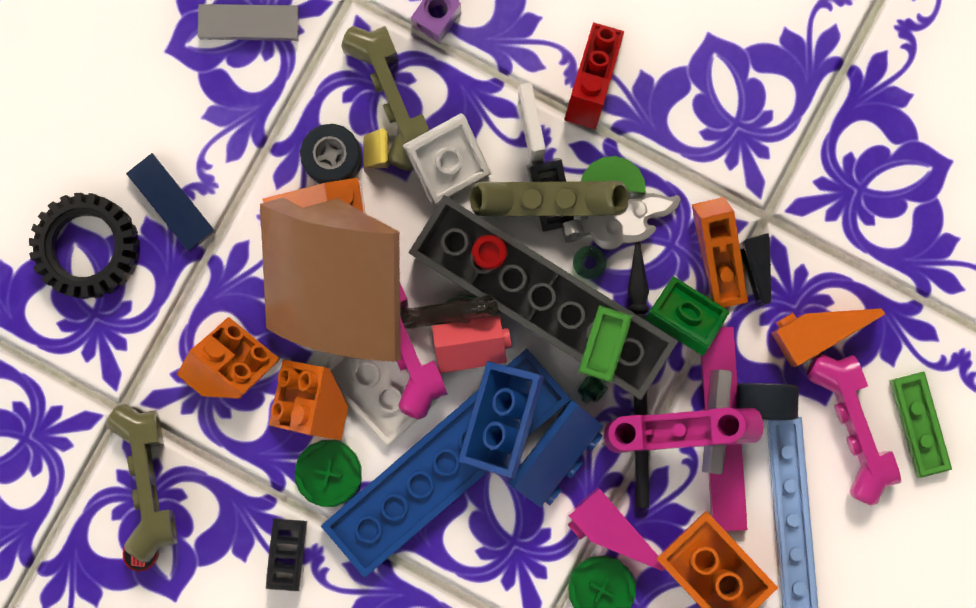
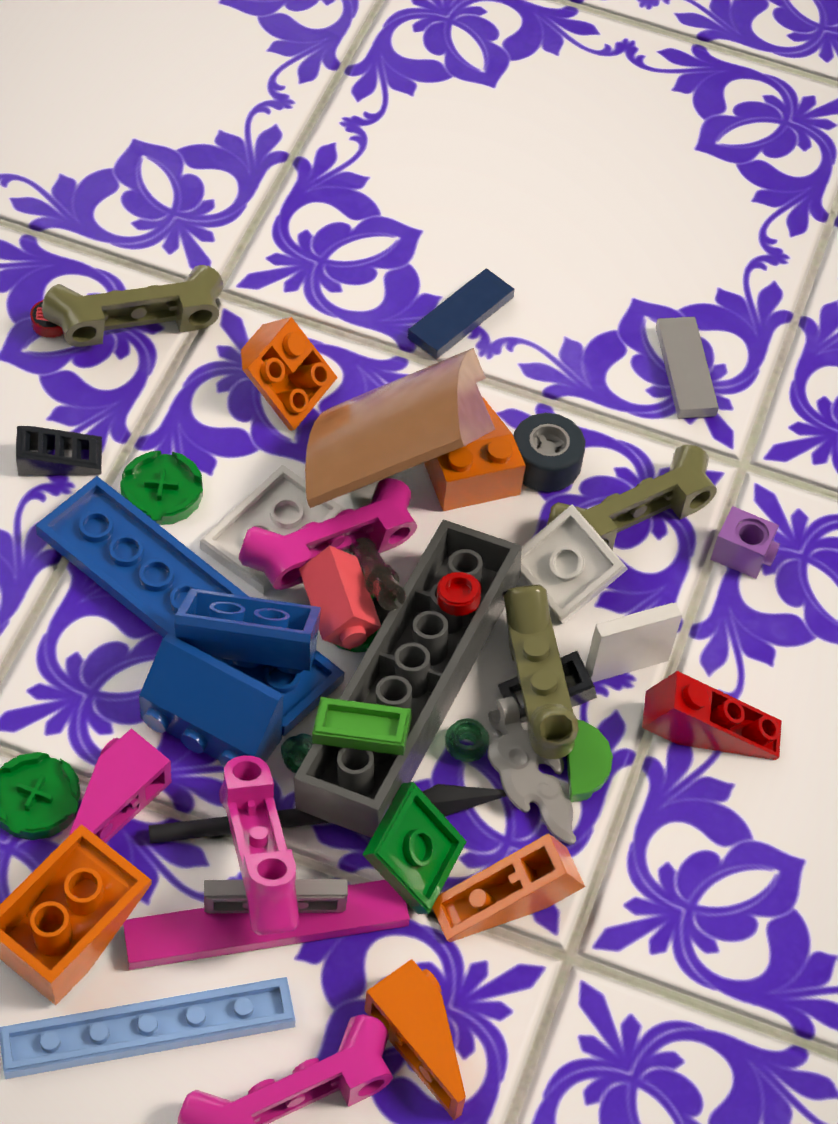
camera: 75 degrees right, 30 degrees down
(45, 242) = (397, 206): black tyre -> none
(308, 401) = (241, 455): orange slope -> none
(376, 149) = (576, 496): light yellow slope -> none
(757, 263) = (501, 939): black slope -> none
(770, 399) = (312, 960): black wheel -> none

